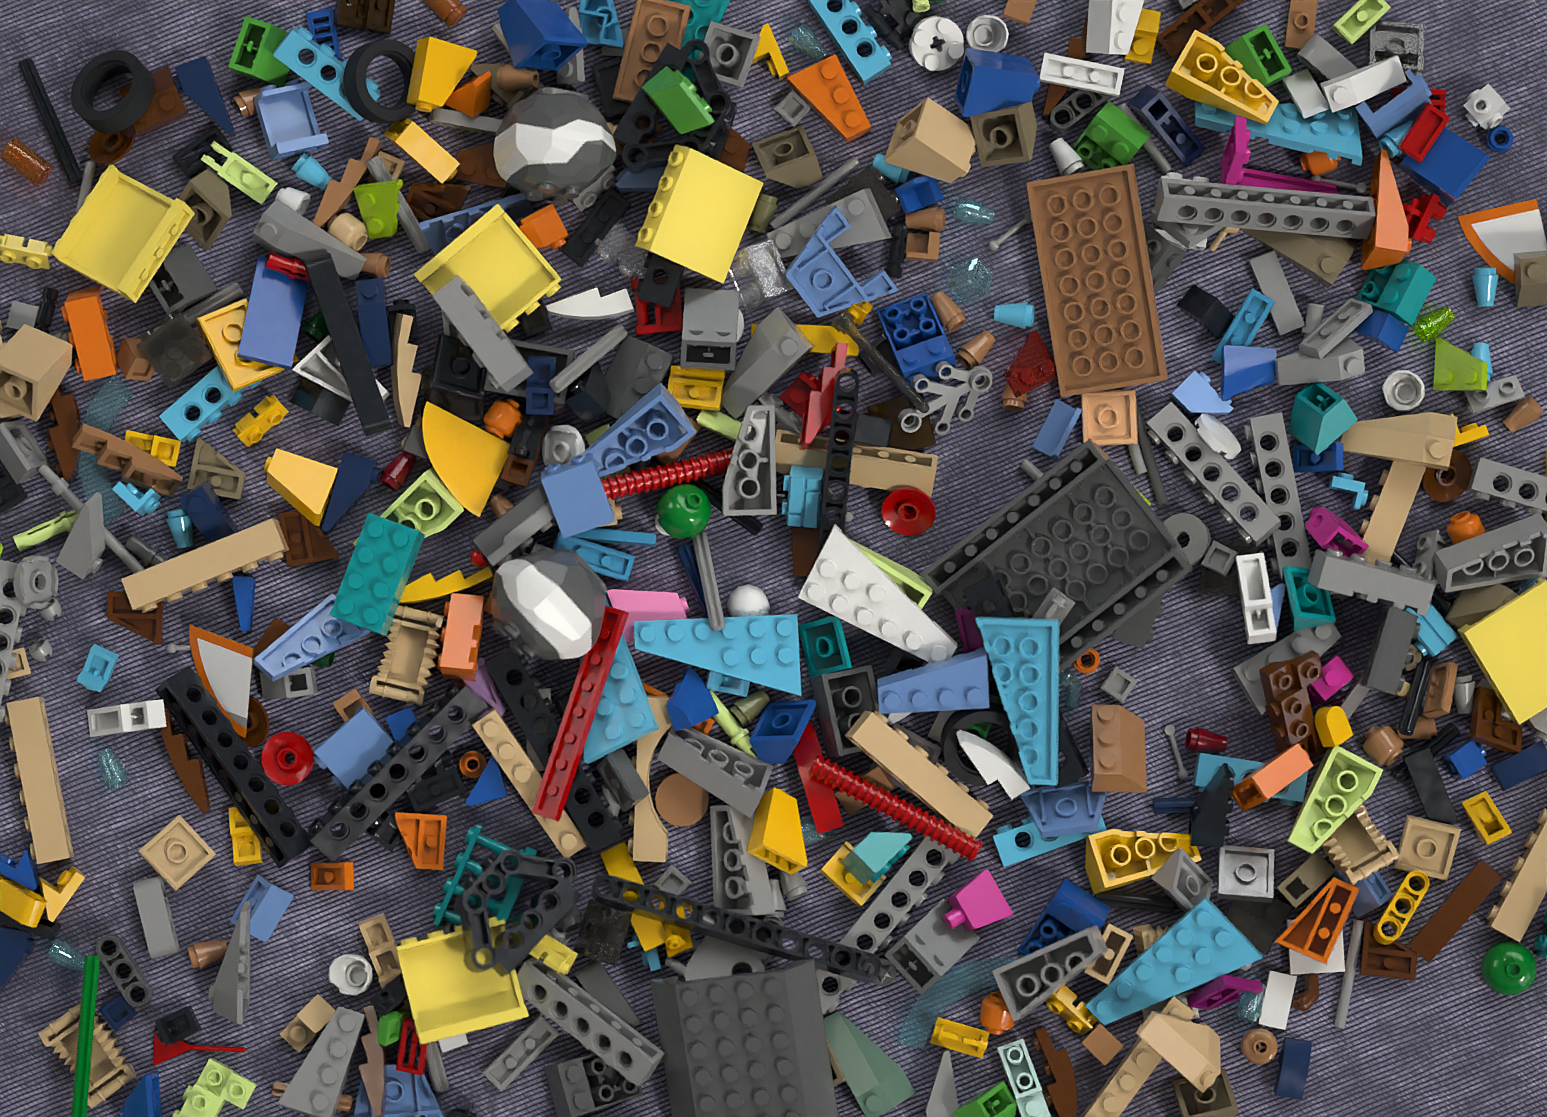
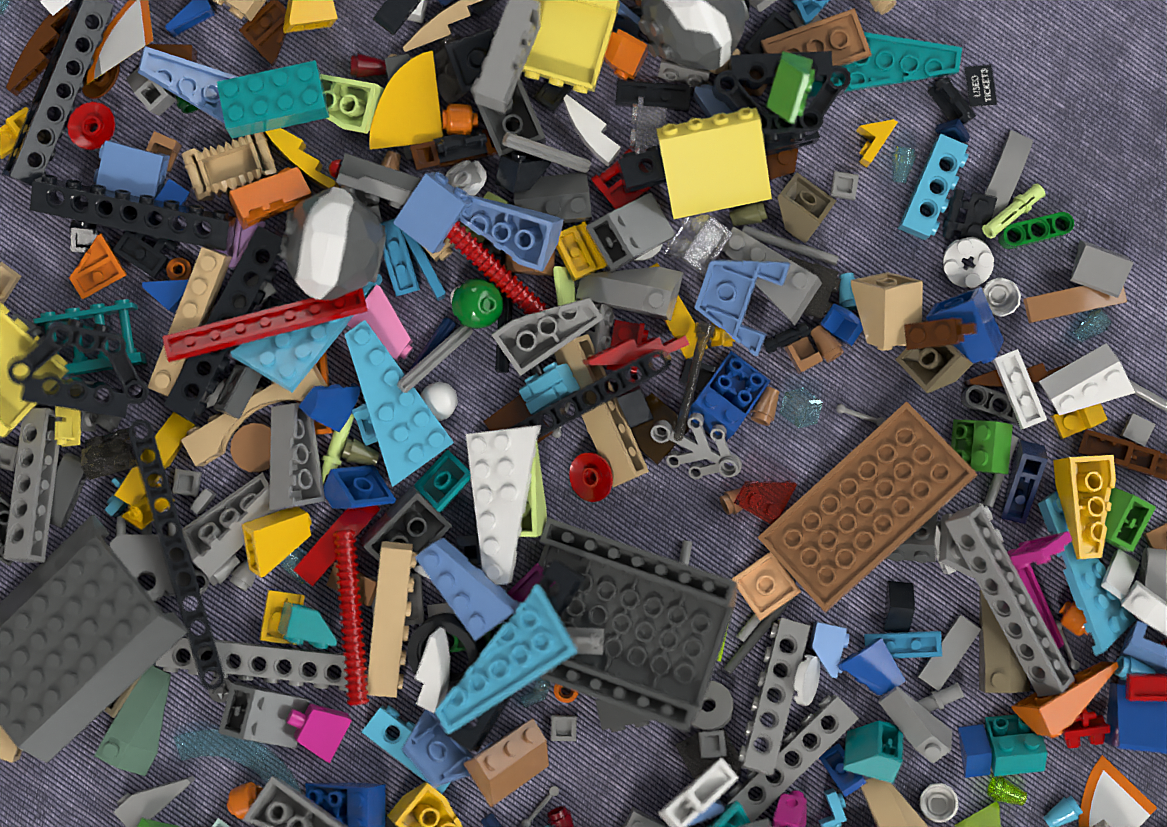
camera: 55 degrees right, 0 degrees up
(332, 876) = (24, 222): orange slope -> none
(351, 485) = (334, 37): dark blue slope -> none
(539, 393) = (492, 131): dark blue slope -> none
(700, 877) = (203, 501): none -> light grey tile
(730, 53) = (855, 108): light grey slope -> none
(832, 97) = (873, 208): orange wedge -> none
(960, 1037) = (209, 783): yellow hinge -> none
(973, 212) = (856, 376): clear light blue cone -> none
(975, 350) = (750, 447): medium nougat cone -> none
(983, 116) = (937, 333): none -> reddish brown hinge
(1015, 314) = (798, 460): medium azure cone -> none
(1056, 429) = (730, 550): medium blue panel -> none
(1066, 158) = (945, 420): white cone -> none
(1222, 233) = (967, 580): tan hand -> none
(1335, 328) = (952, 717): light grey tile -> none

